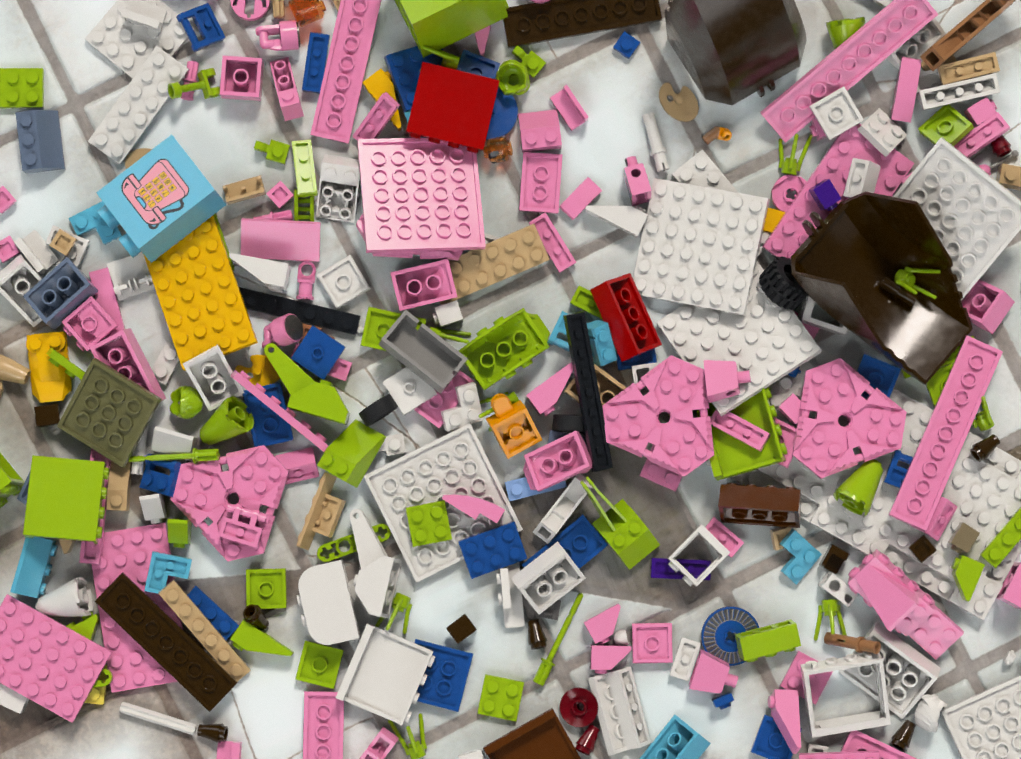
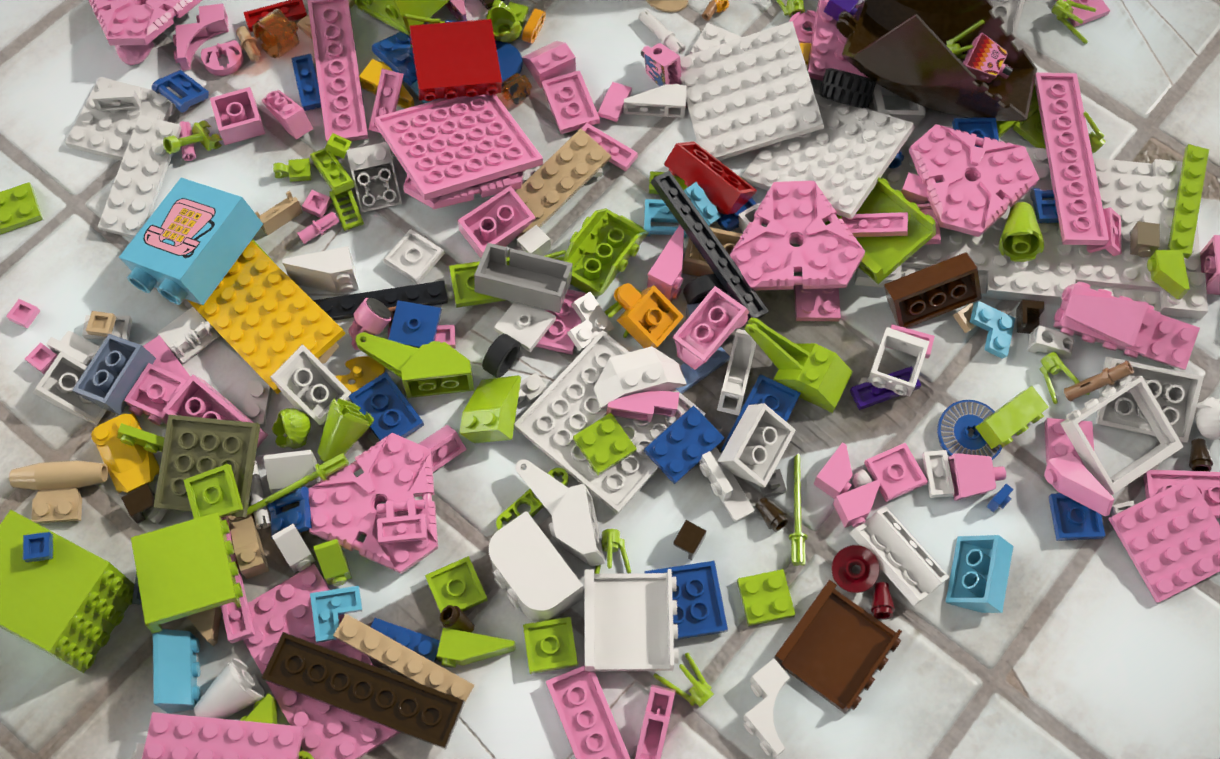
camera: 20 degrees left, 20 degrees down
(40, 141) = (46, 245): sand blue slope -> none
(90, 219) = (129, 297): medium azure plate -> none
(106, 442) = (213, 492): none -> lime plate
(273, 403) = (388, 389): bright pink plate -> none
(280, 239) = (345, 230): bright pink tile -> none
(288, 33) = (266, 67): bright pink piece -> none
(305, 282) = (375, 271): bright pink connector -> none
(318, 147) = (337, 145): none -> lime plate
(323, 513) = (486, 483): tan bracket -> none
(480, 477) = (637, 373): none -> white wedge
(541, 87) = (533, 26): none -> light orange beam
(569, 108) = (569, 31): bright pink panel -> none
(723, 379) = (837, 179): bright pink torso -> none
(922, 549) = (1111, 265): dark brown plate -> none
(923, 308) = (987, 60): none -> torso
(984, 448) = (1112, 156): dark brown cone -> none
(987, 305) = (1041, 46): bright pink slope -> none

